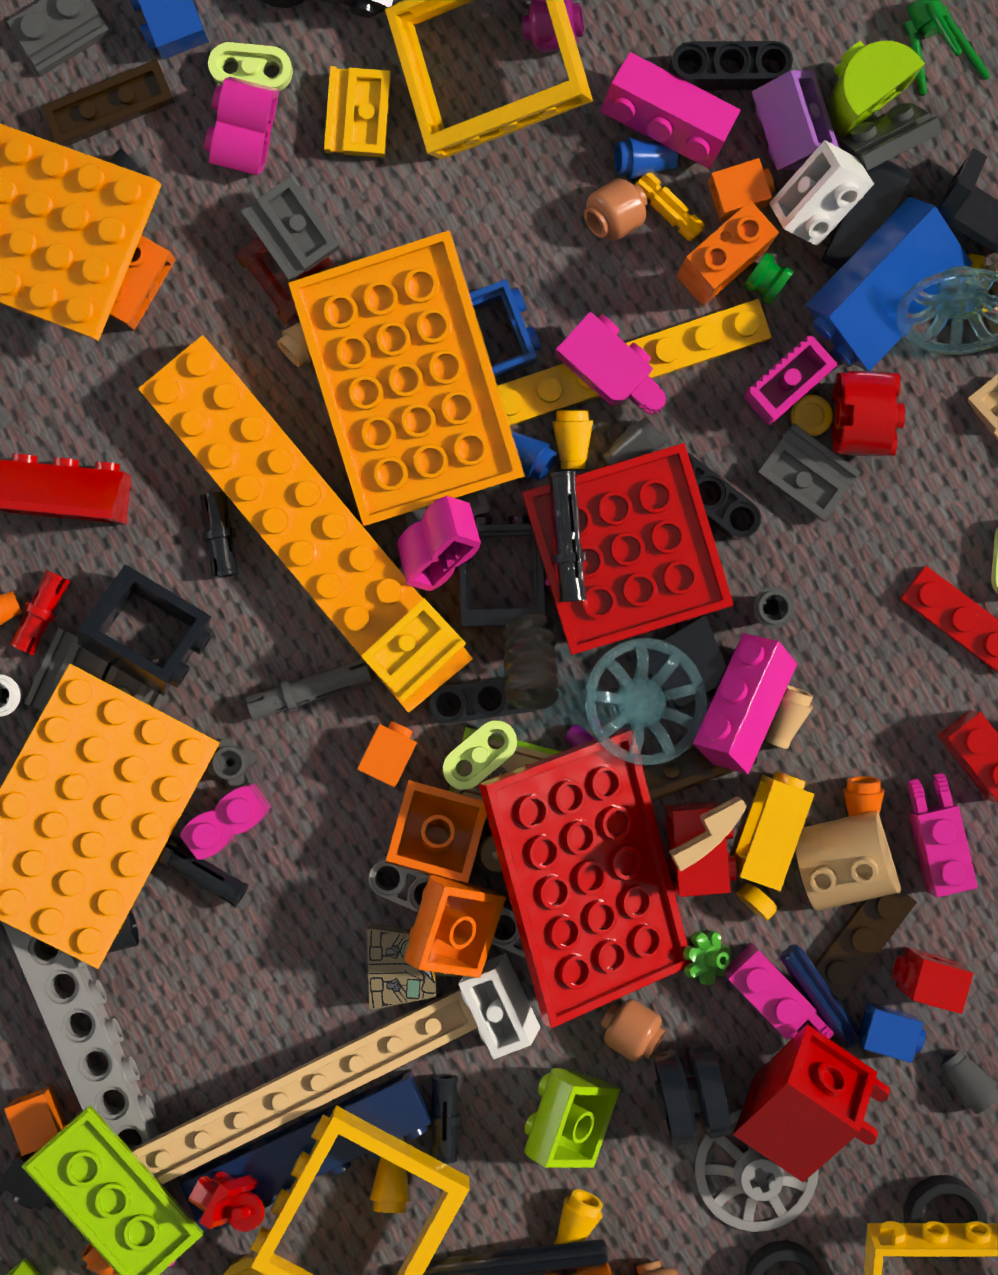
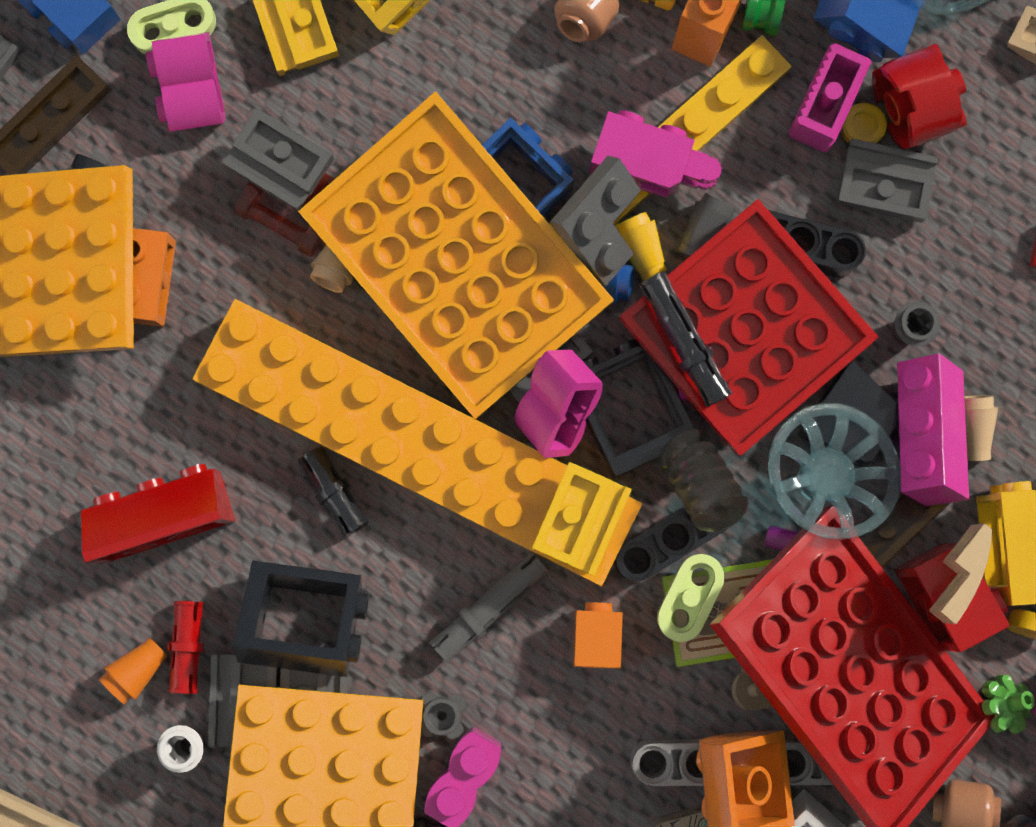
camera: 25 degrees left, 5 degrees down
(437, 832) = (683, 694): orange brick -> none
(533, 395) = (589, 217): none -> dark grey plate

